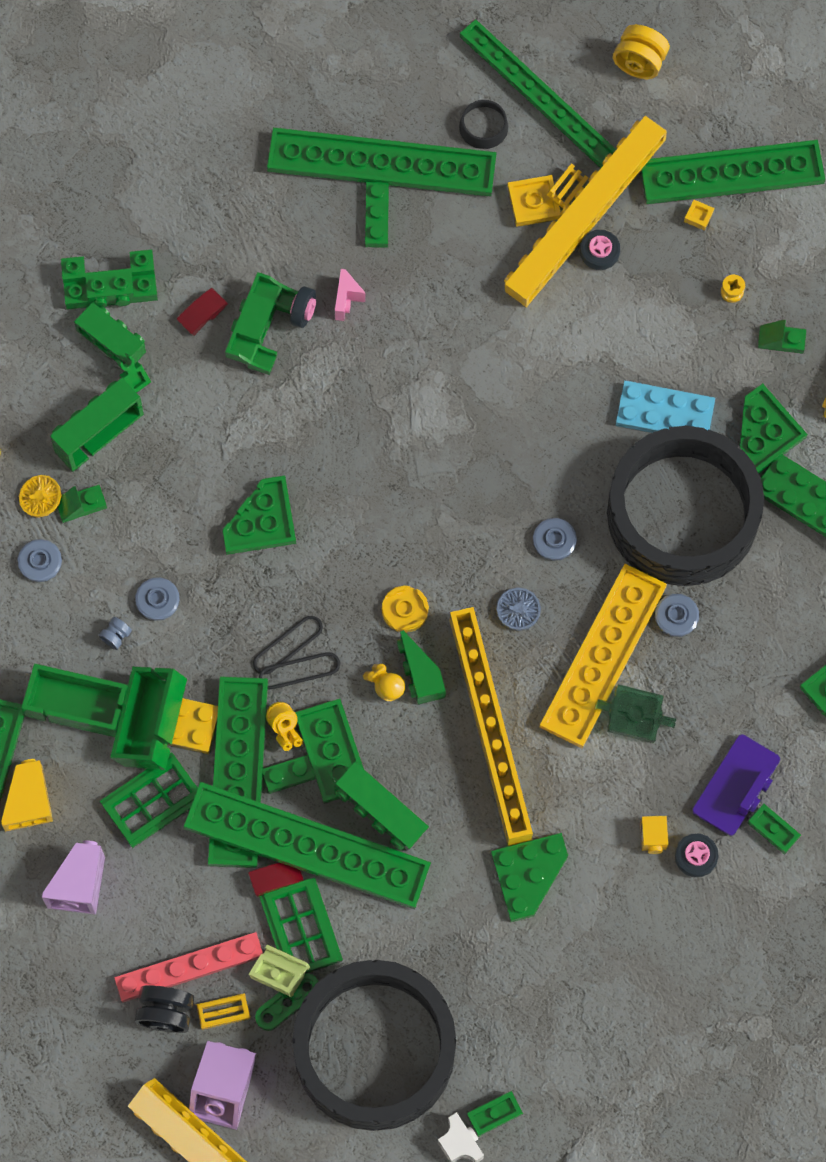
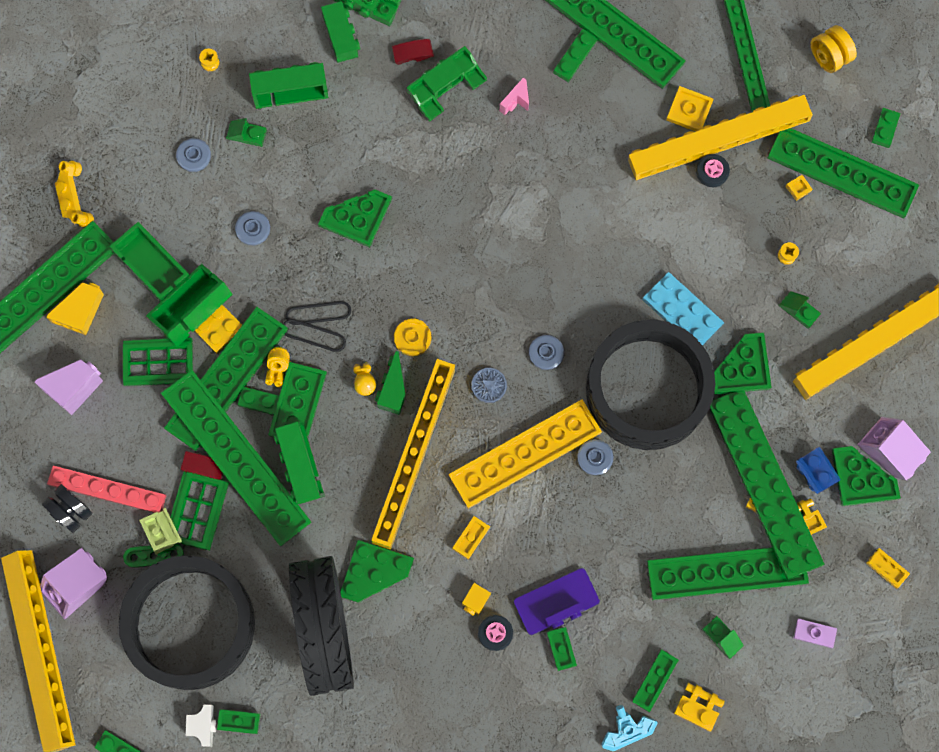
camera: 30 degrees right, 5 degrees up
(40, 496) = (222, 111): yellow wheel -> none
(115, 633) = (208, 234): sand blue wheel -> none
(133, 373) = (336, 67): green plate -> none
(228, 1020) = (124, 539): yellow tile -> none
(303, 307) = (480, 88): black wheel -> none
(483, 143) = (686, 51): black tyre -> none
(524, 949) = (320, 626): none -> black tyre
(575, 176) = (731, 109): yellow tile -> none
(606, 775) = (471, 537): none -> yellow plate
(635, 713) = (519, 508): clear green plate -> none
(745, 101) = (885, 127): none -> green plate

